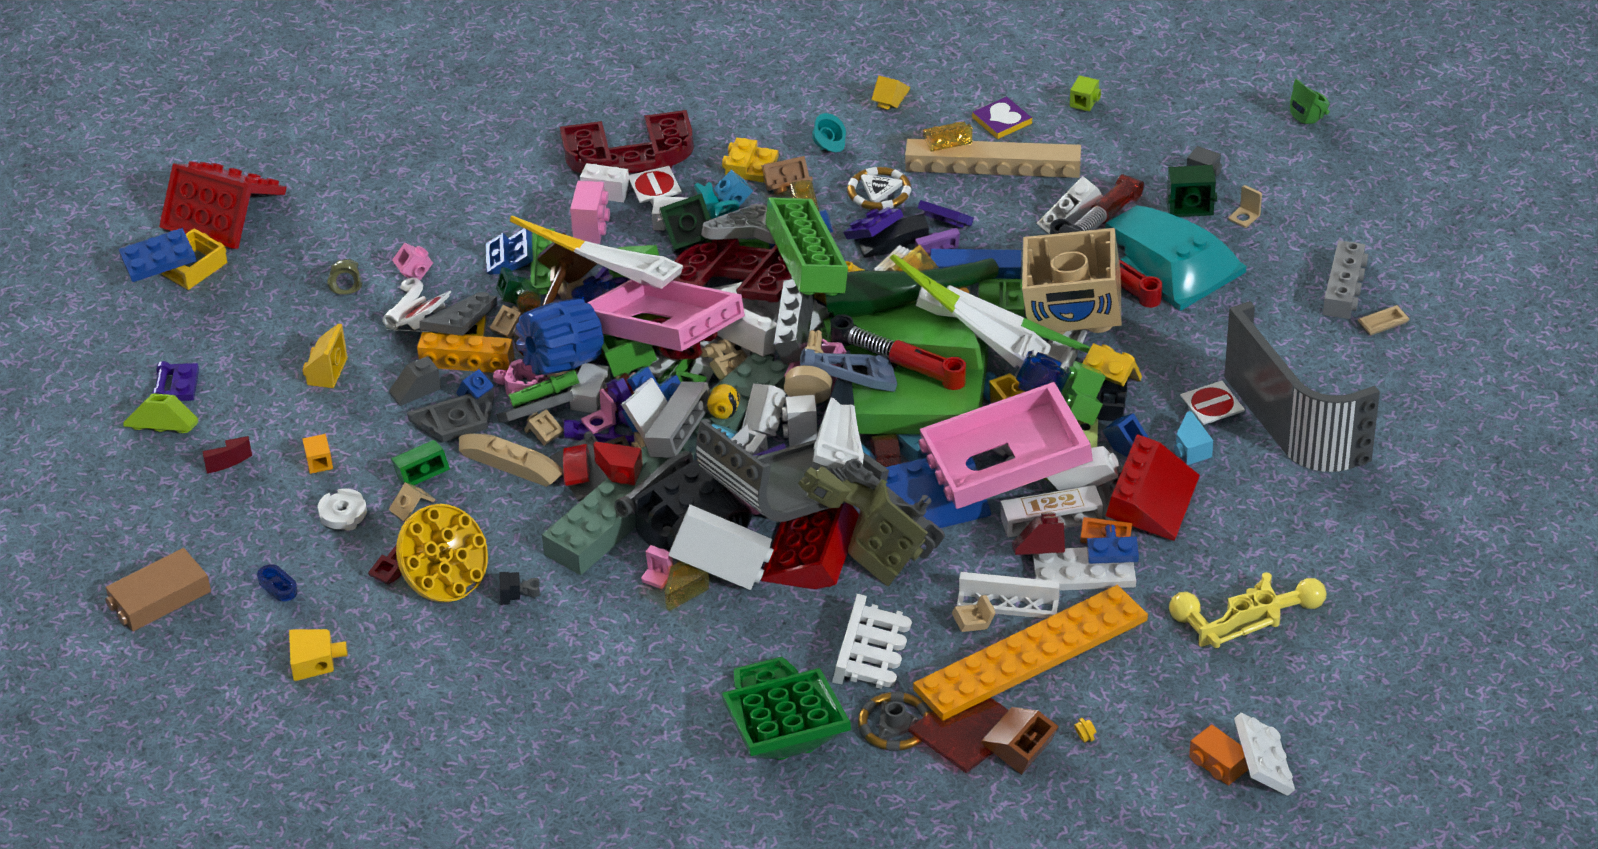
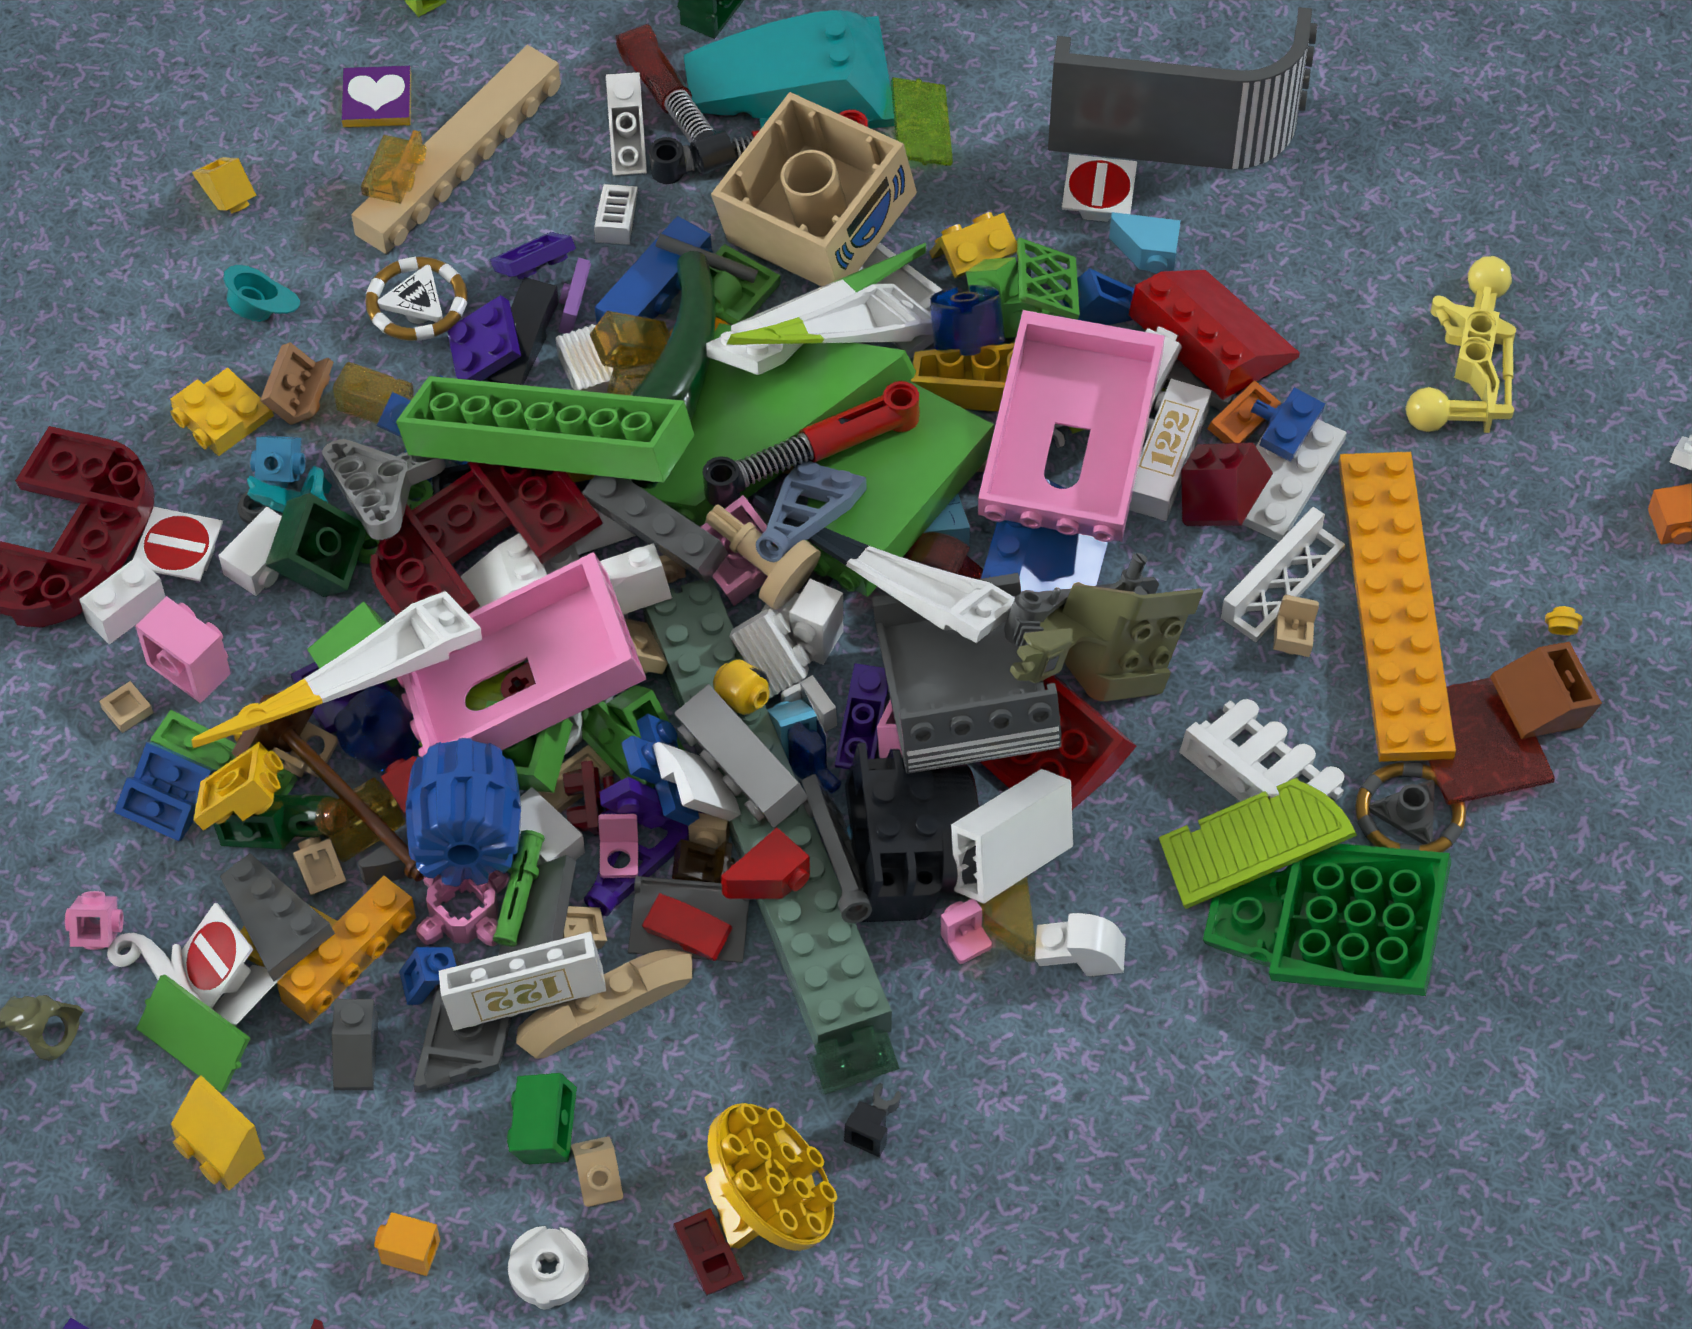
camera: 60 degrees left, 15 degrees up
(377, 324) = (193, 1033): none -> bright green piece
(485, 410) = (522, 981): none -> white brick
(518, 263) = (239, 786): none -> yellow plate
(541, 559) = (853, 1060): none -> clear green brick
(546, 216) = (126, 707): none -> tan plate
(686, 617) = (1083, 940): none -> white brick
(807, 653) = (1253, 840): none -> lime piece
(1003, 277) = (714, 260): none -> dark grey bar
(1004, 235) = (611, 231): none -> white slope
(1123, 410) = (1045, 300): none -> bright green window
(1189, 316) = (922, 120): none -> clear neon green piece

